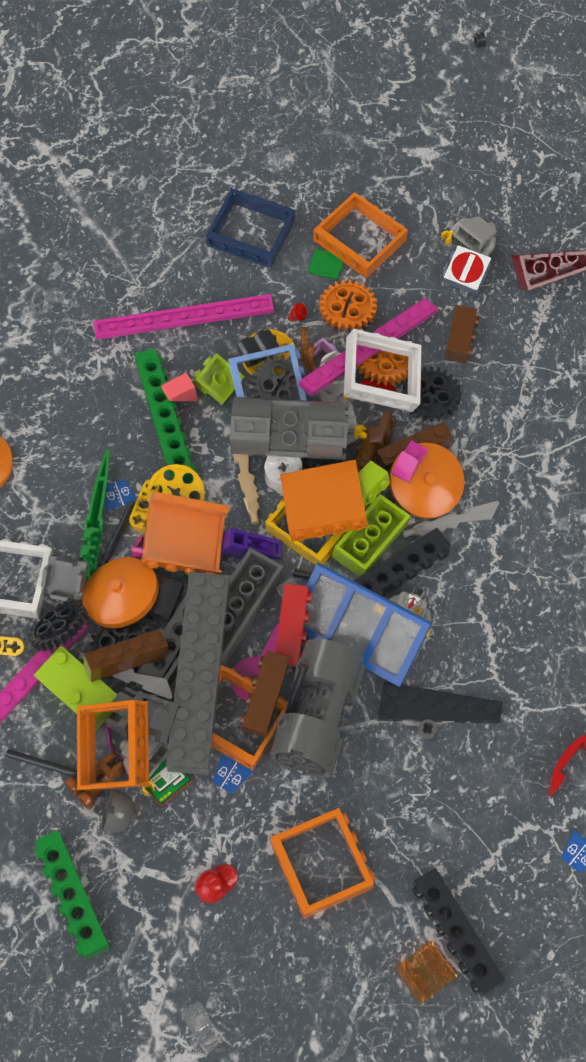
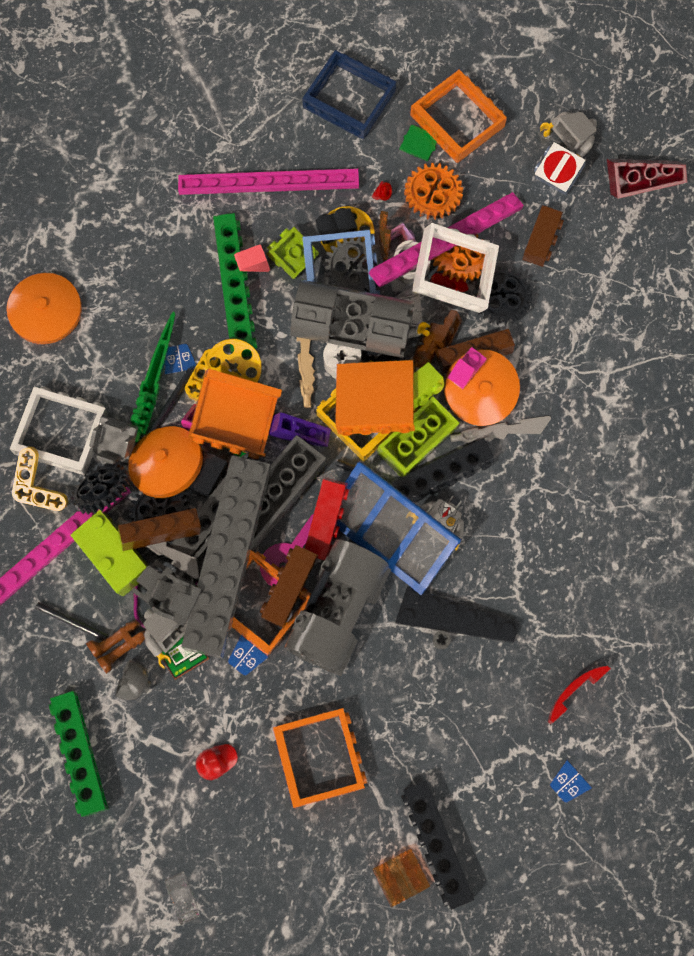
camera: 10 degrees right, 10 degrees up
(137, 745) = (155, 621): orange window -> none

